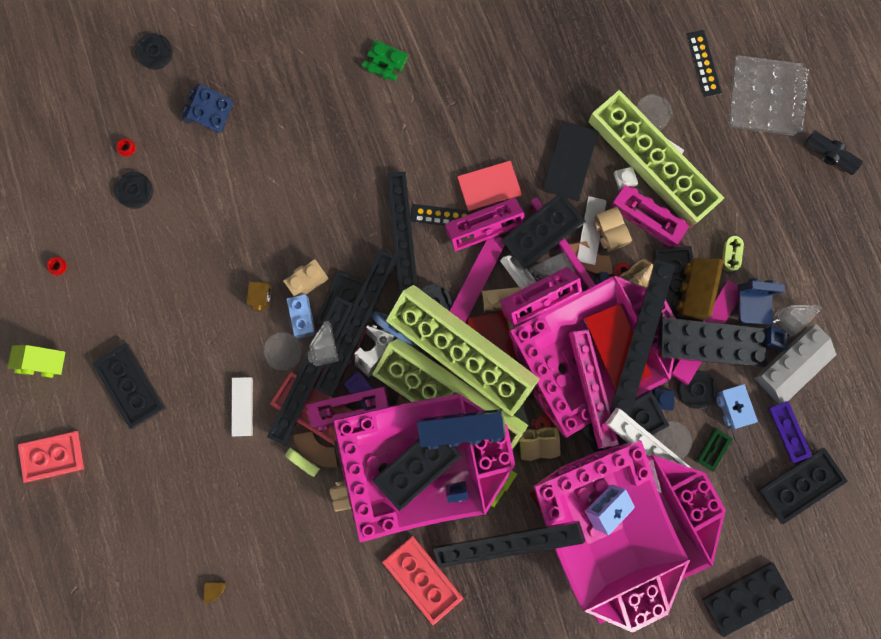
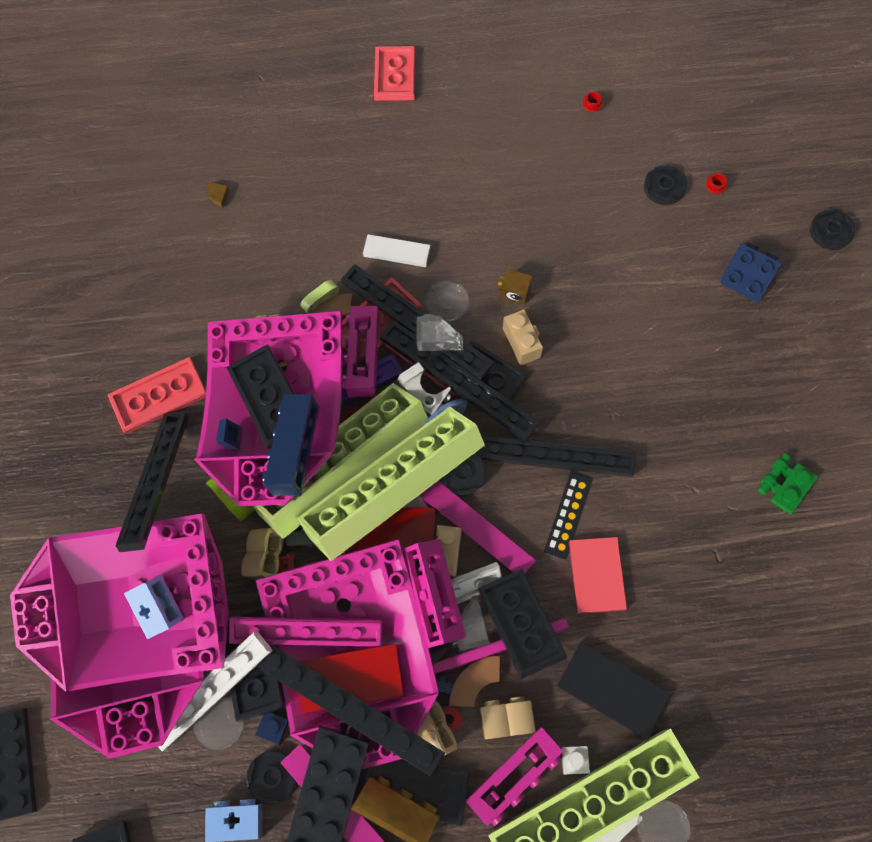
camera: 105 degrees right, 10 degrees down
(32, 359) = (494, 65): brick -> none
(128, 386) = (447, 148): black plate -> none
(301, 316) = (480, 324): light blue brick -> none
(485, 224) = (547, 554): dark pink brick -> none
(589, 234) = (543, 707): white sticker -> none
(699, 459) = (199, 768): dark green tile -> none

